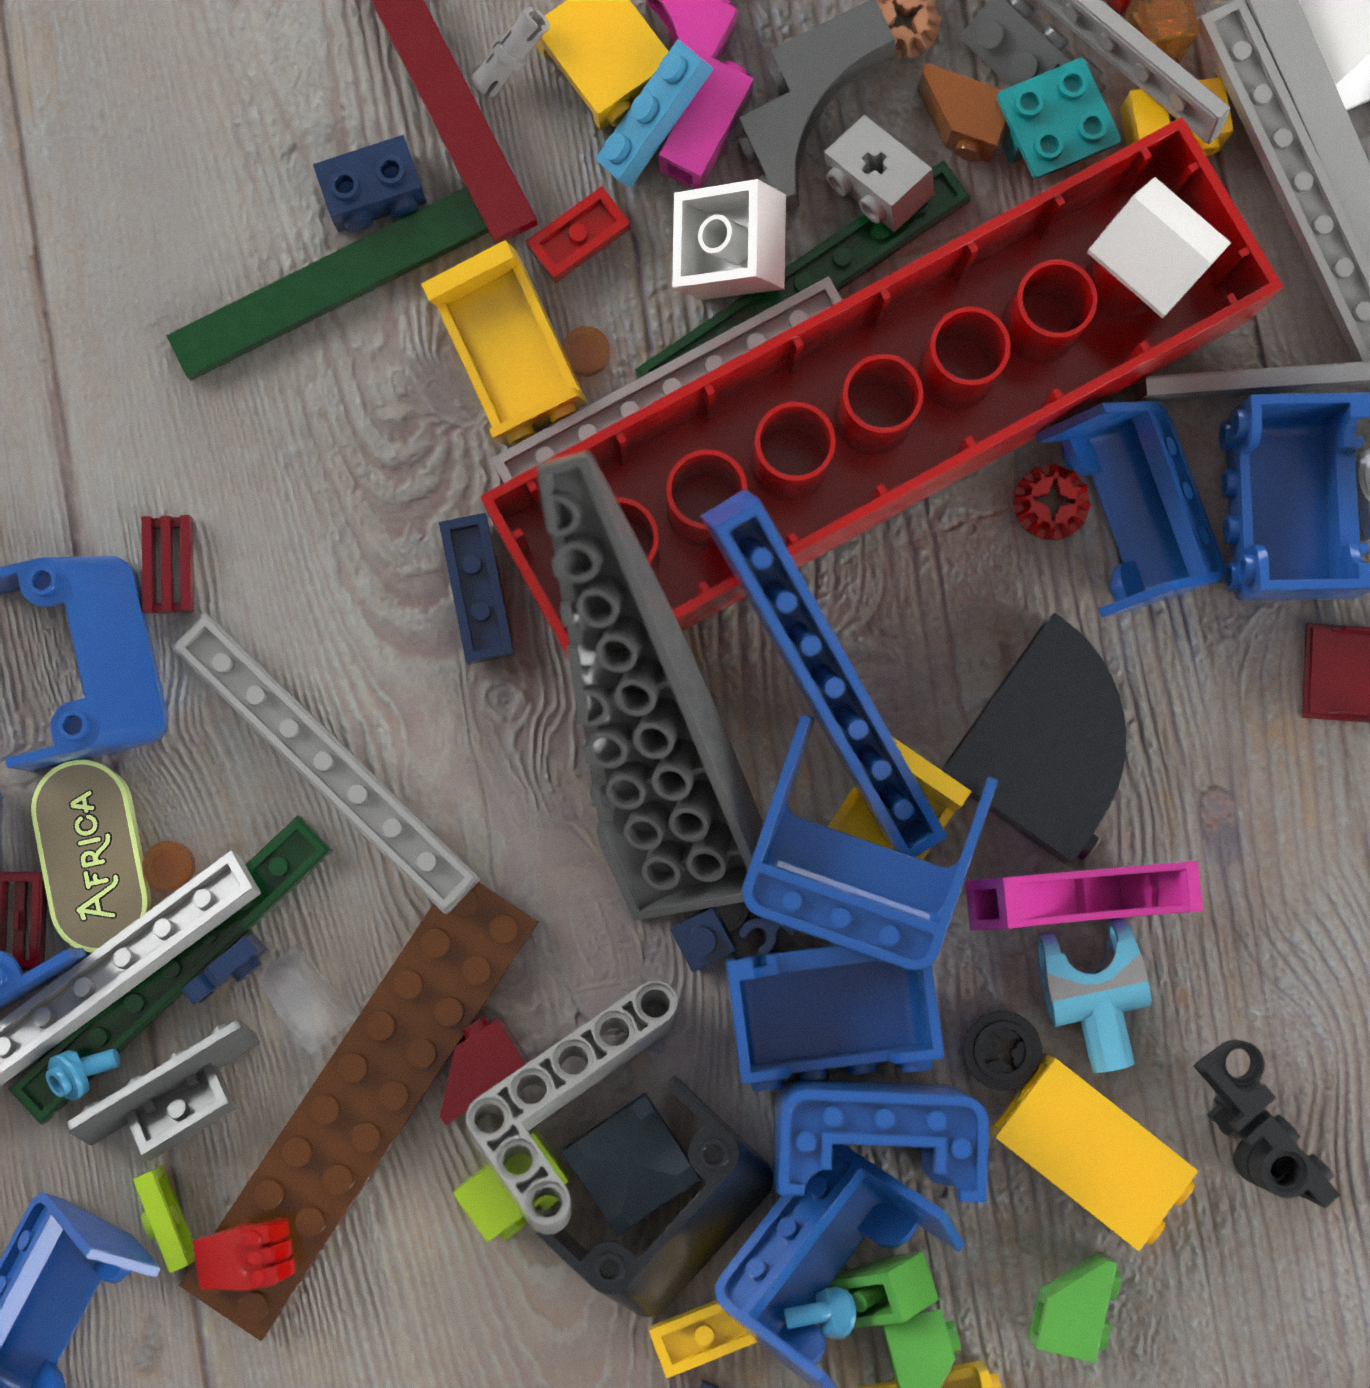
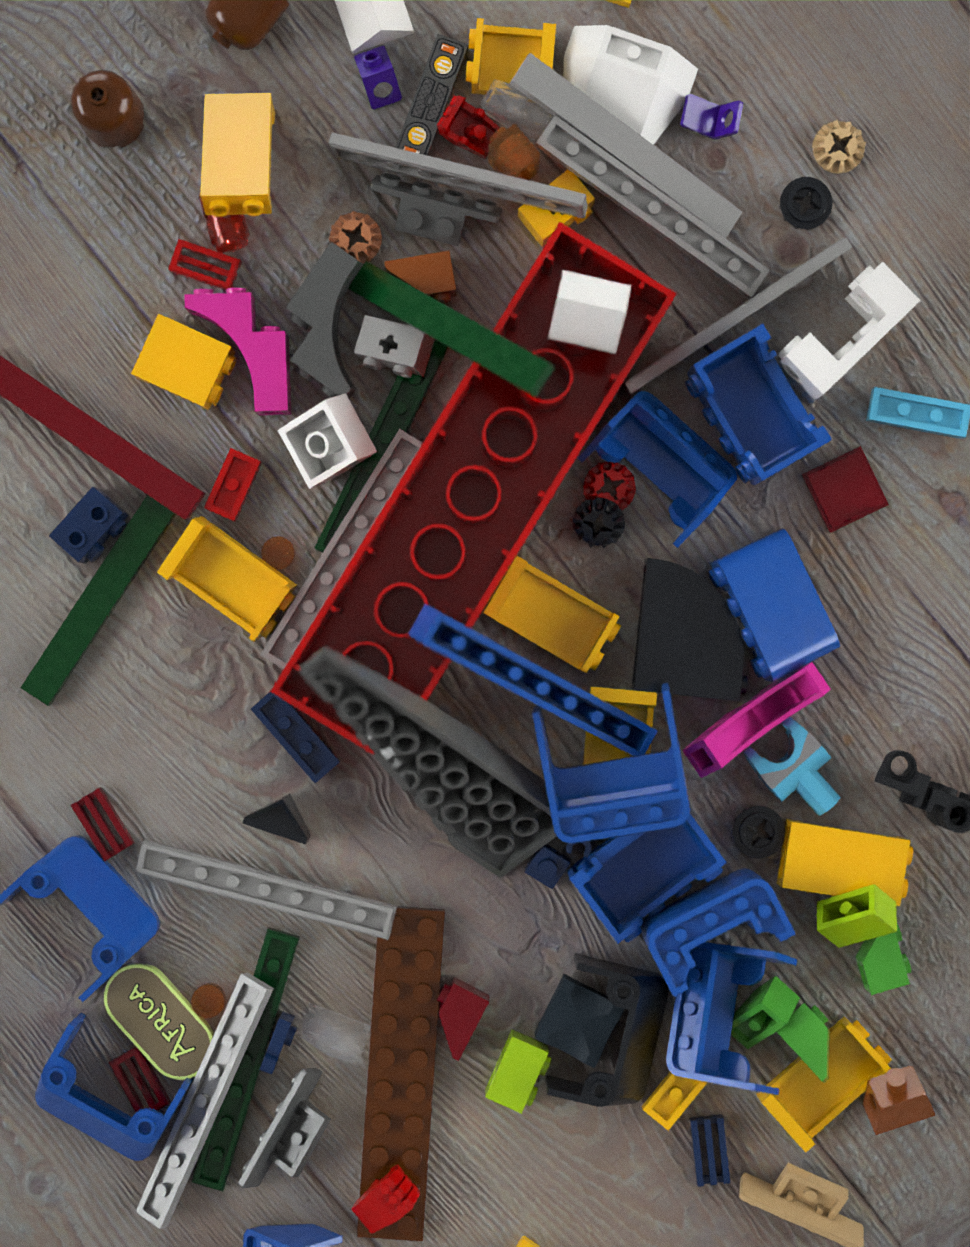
camera: 25 degrees left, 5 degrees up
(69, 1074) = (222, 1153): dark azure plate -> none
(164, 1218) = (326, 1204): lime plate -> none
(397, 679) = (280, 819): none -> black slope
(510, 51) = (127, 397): light grey pin -> none
(560, 1090) = (513, 1003): light grey beam -> none
(654, 113) = (237, 386): dark azure plate -> none
(832, 1310) = (743, 1040): dark azure plate -> none
(888, 621) = (552, 616): none -> yellow panel
(971, 180) = (452, 329): none -> dark green tile
(1036, 537) = (590, 511): none -> black gear
(1056, 119) = (484, 252): teal bracket -> none
(1074, 1231) = (856, 916): none -> lime brick
(1186, 765) = (775, 605): none -> blue windscreen

